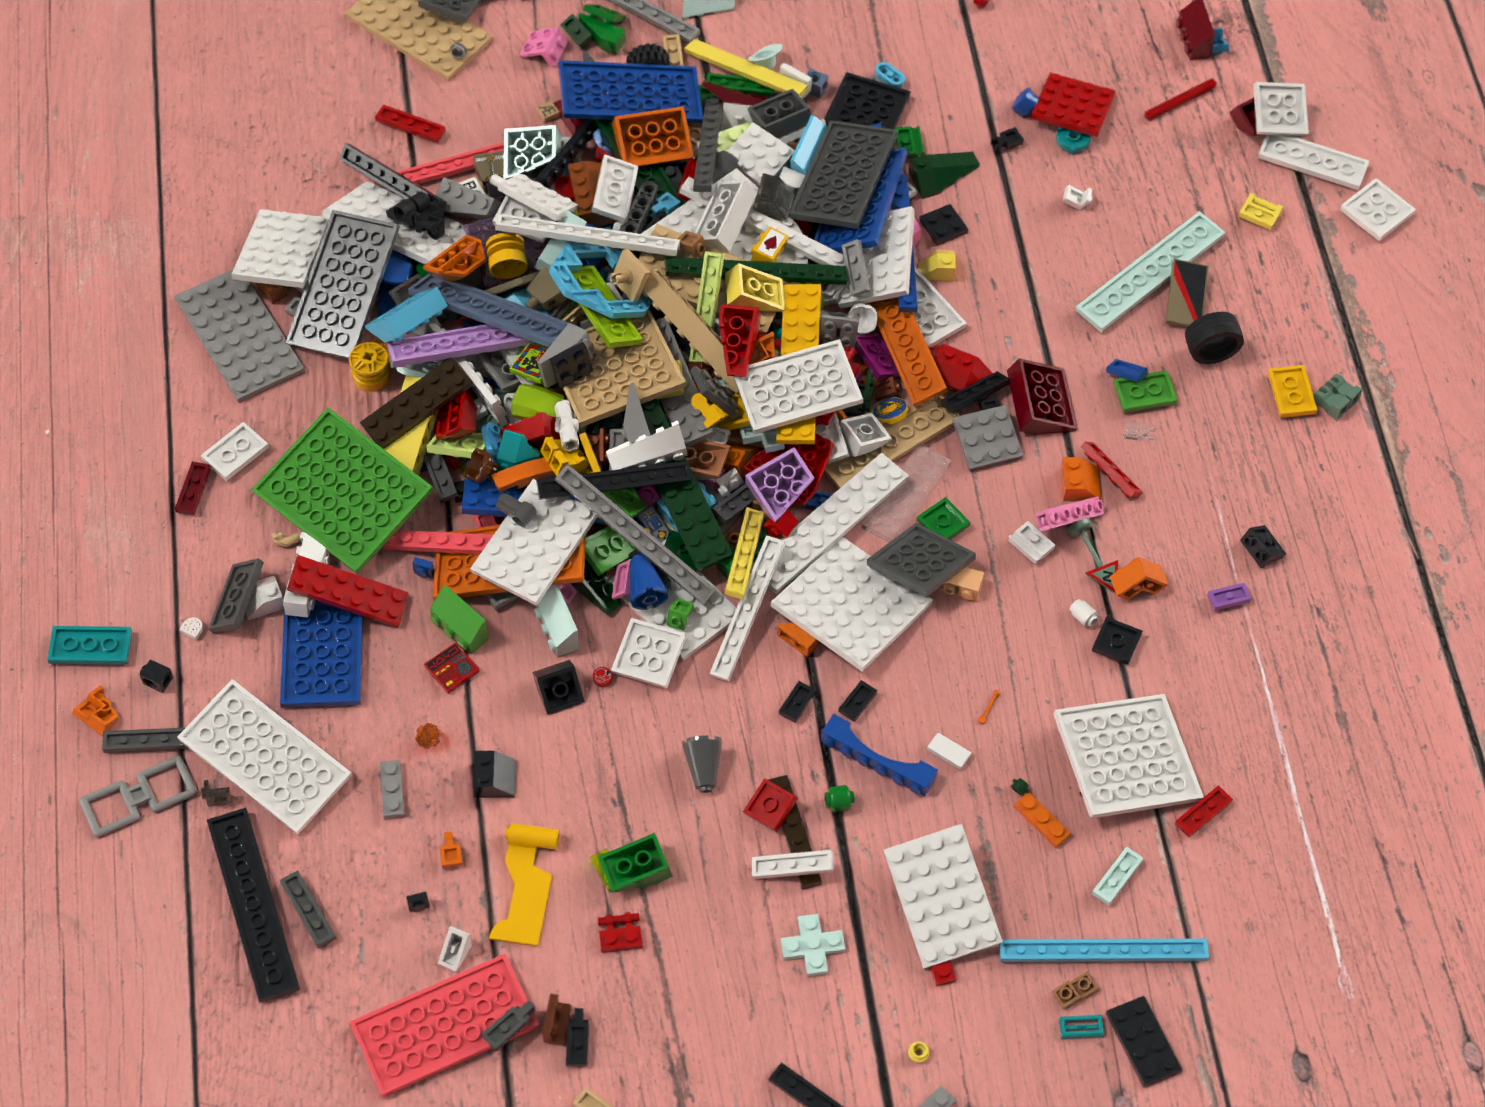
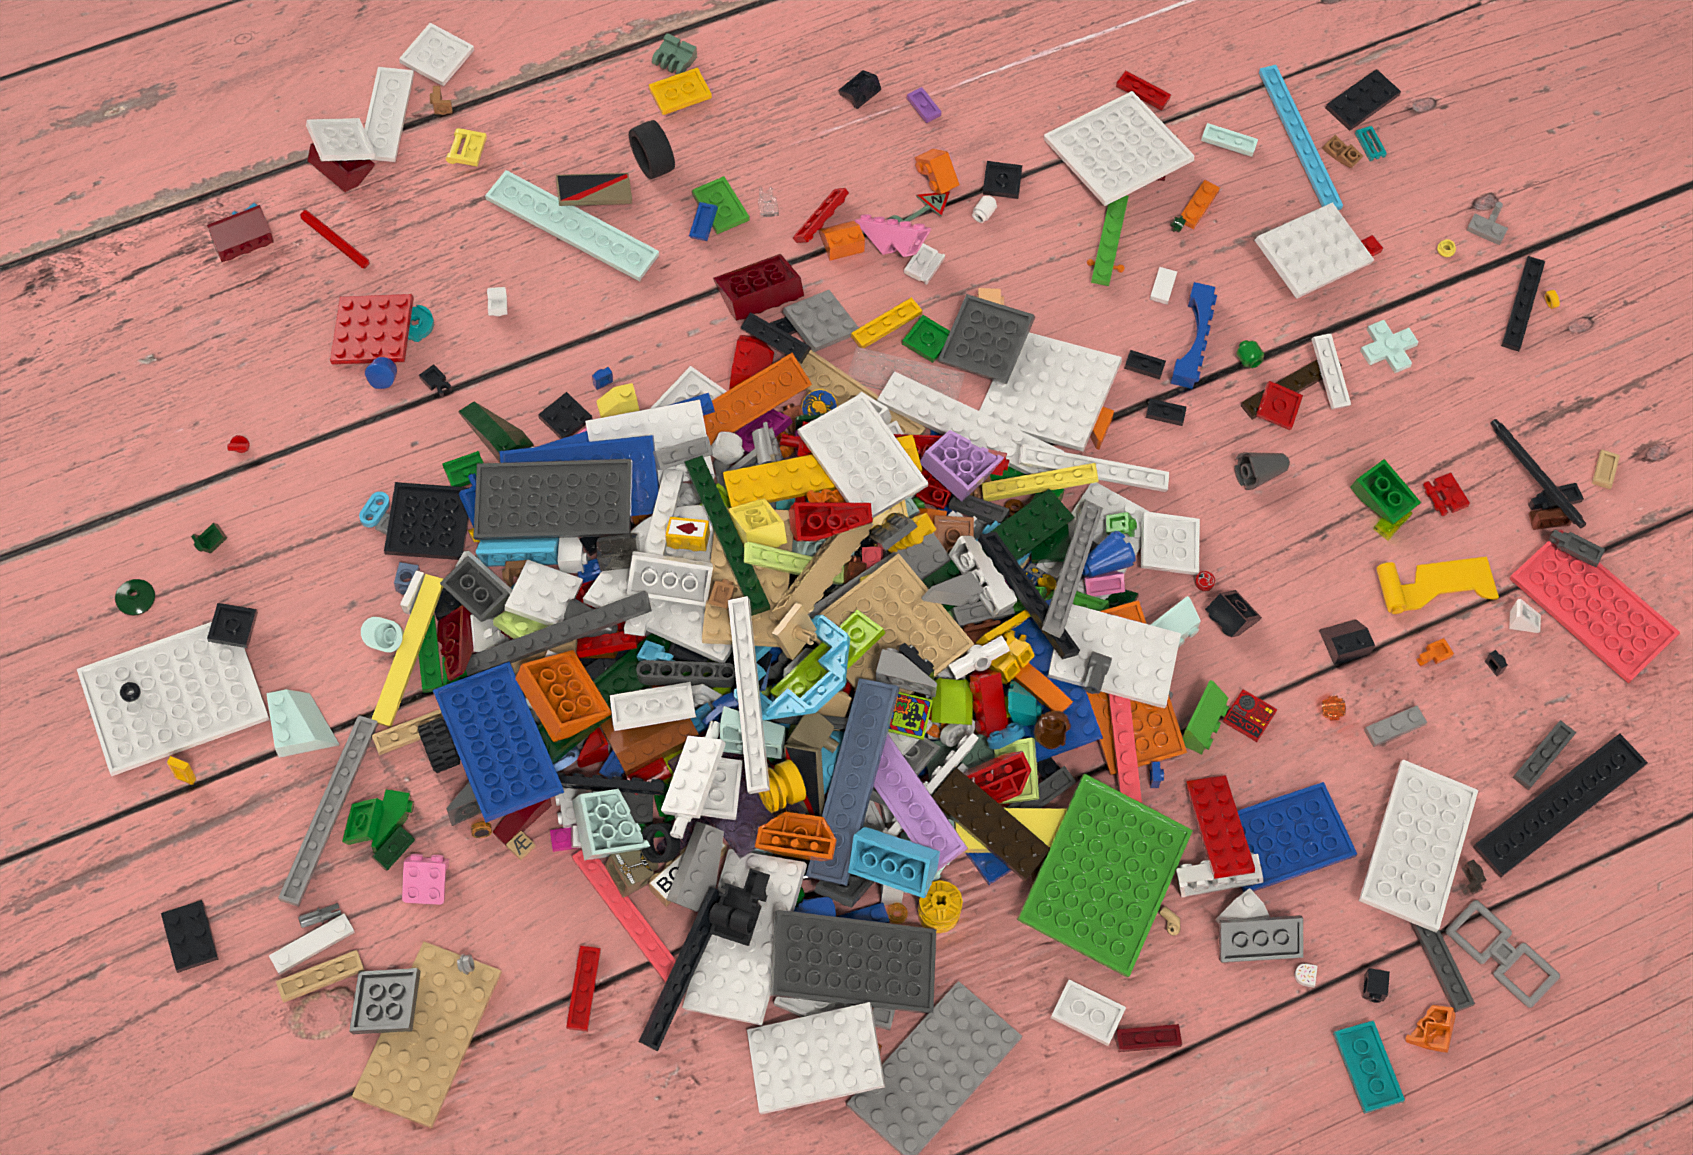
camera: 110 degrees left, 5 degrees up
(608, 1019) = (1540, 476): none -> black piece
(970, 492) = (886, 323): none -> yellow plate
(974, 256) = (602, 378): none -> blue plate
(1014, 716) = (1109, 241): none -> bright green plate
(1319, 198) = (440, 106): none -> medium nougat bracket

